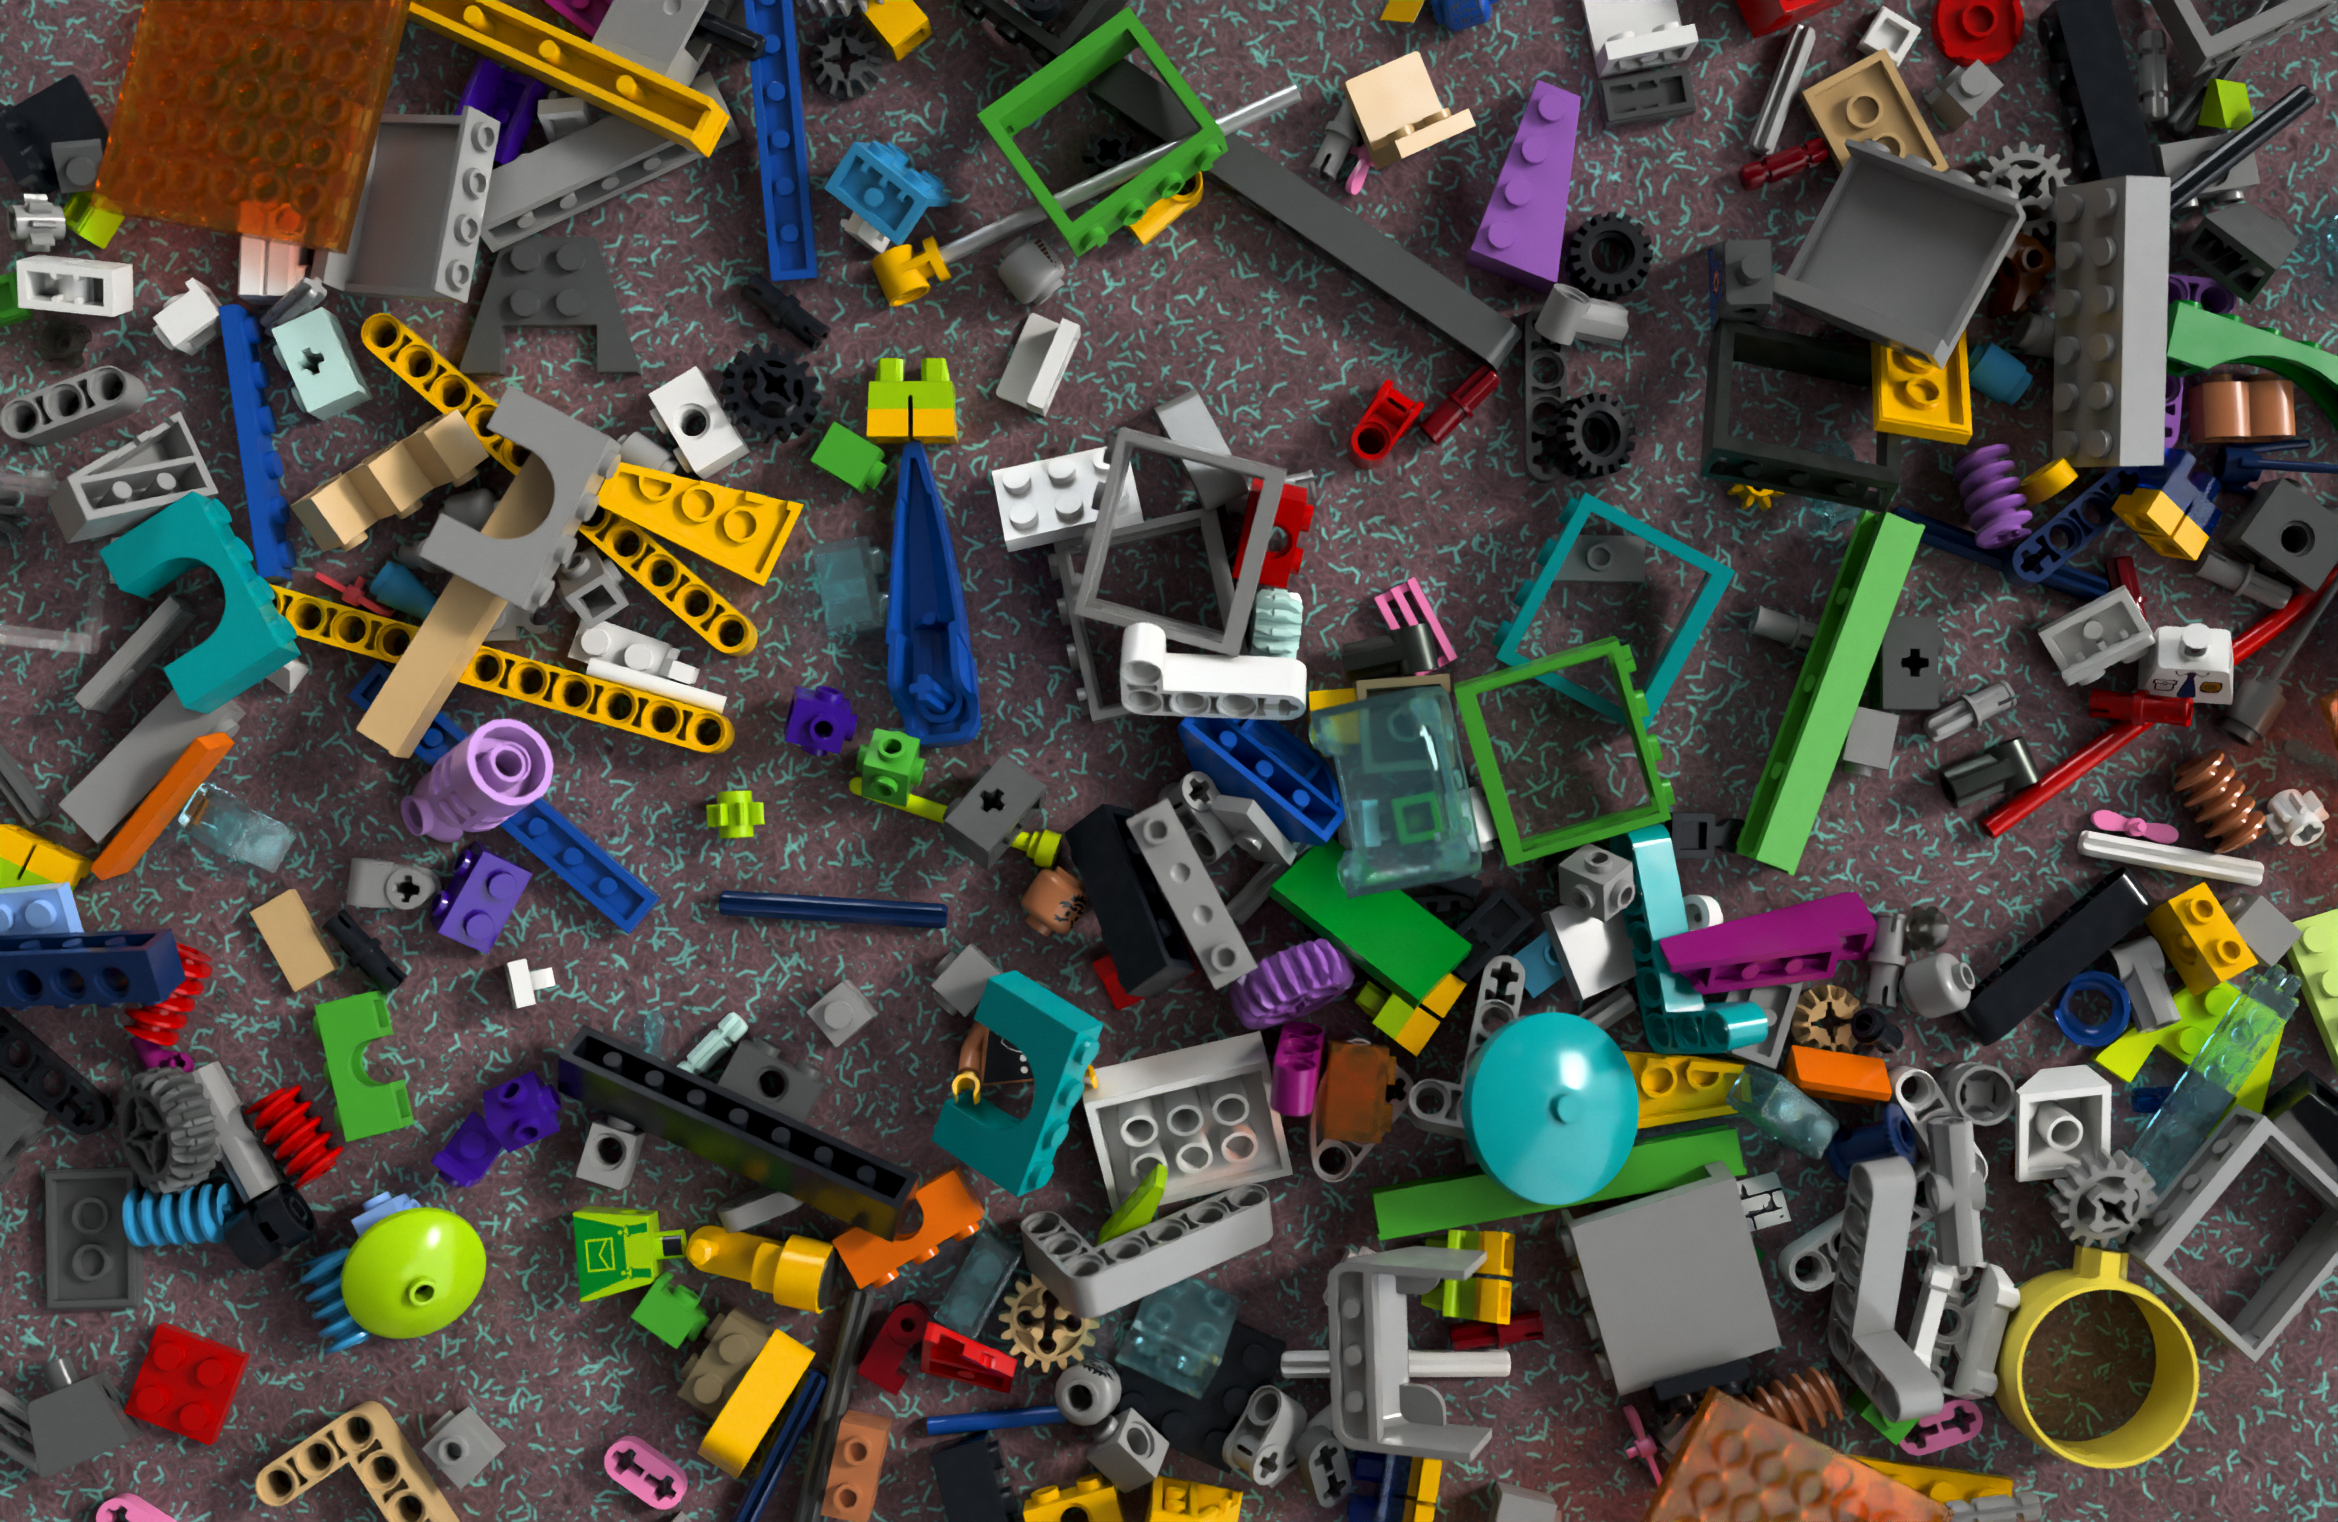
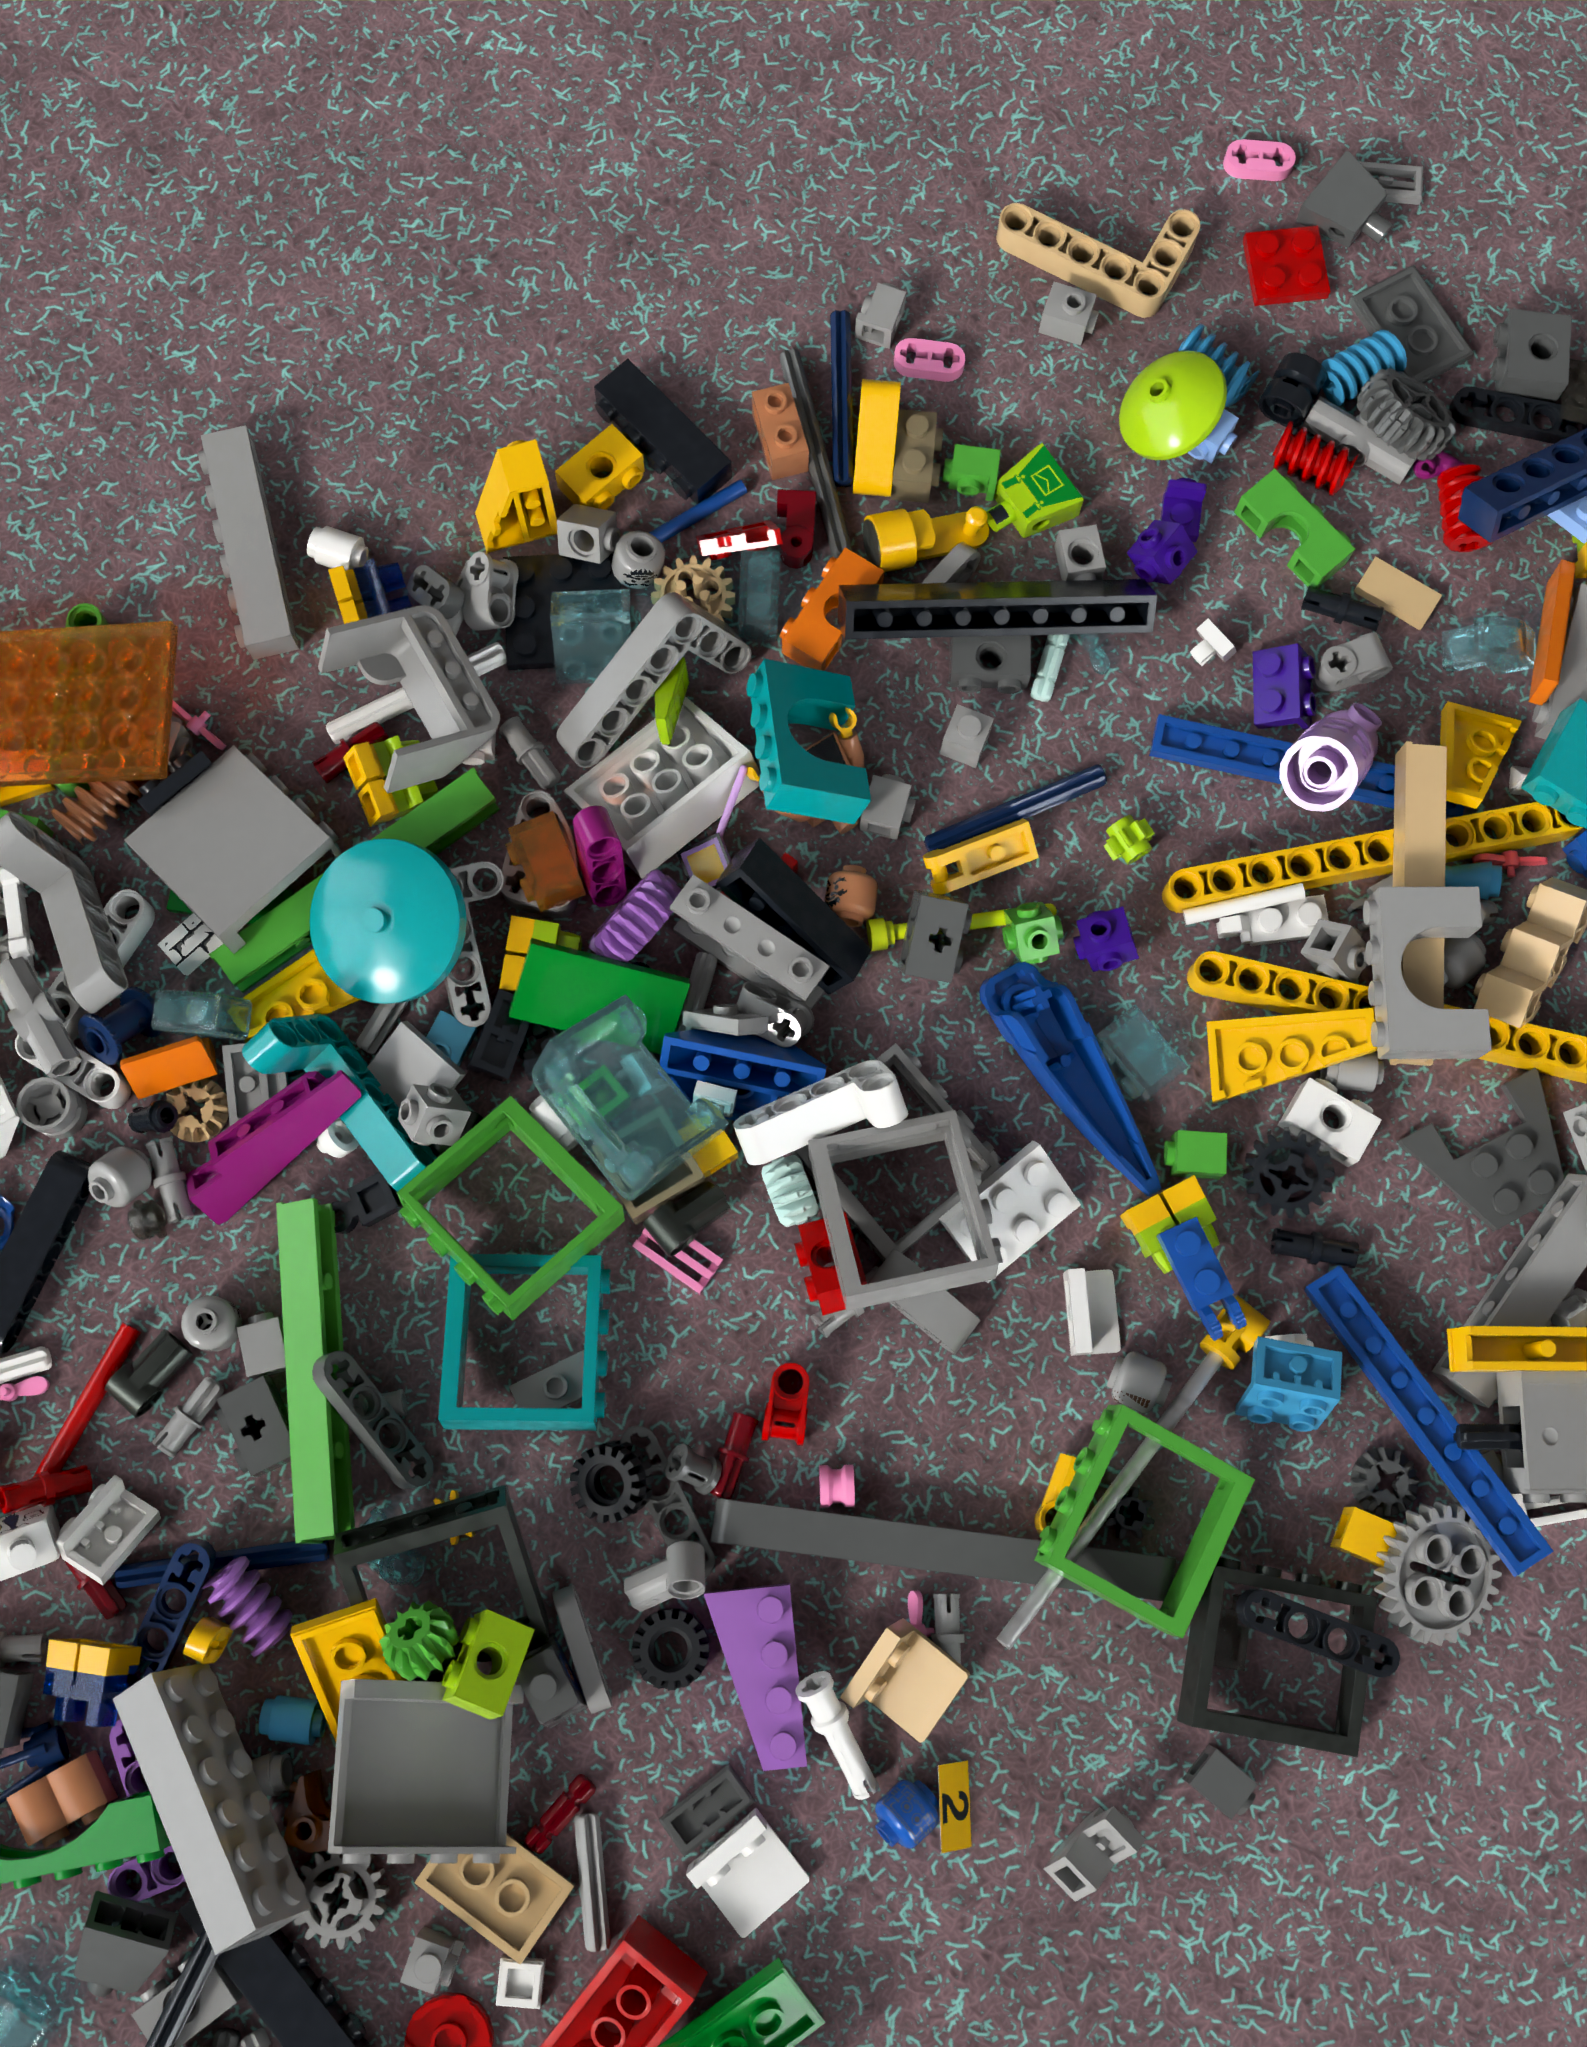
camera: 150 degrees right, 10 degrees down
(320, 728) = (1475, 749): none -> yellow wing
(898, 875) = (981, 856): none -> yellow plate
(916, 336) = (1200, 1275): none -> blue hinge
(1182, 1017) = (710, 856): none -> piece
(1304, 757) = (722, 1096): none -> white tile
(1308, 1232) = (530, 753): none -> light grey axle
(1375, 324) = (836, 1486): none -> bright pink wheel
(1494, 109) = (831, 1720): none -> white pin
(1505, 408) = (693, 1469): none -> dark grey bush
(1694, 296) = (583, 1655): none -> light grey beam
(1789, 612) = (369, 1425): none -> dark grey beam
(1802, 288) = (506, 1645): none -> lime brick
(1852, 366) = (419, 1640): none -> bright green gear
(1894, 788) = (223, 1326): none -> light grey head

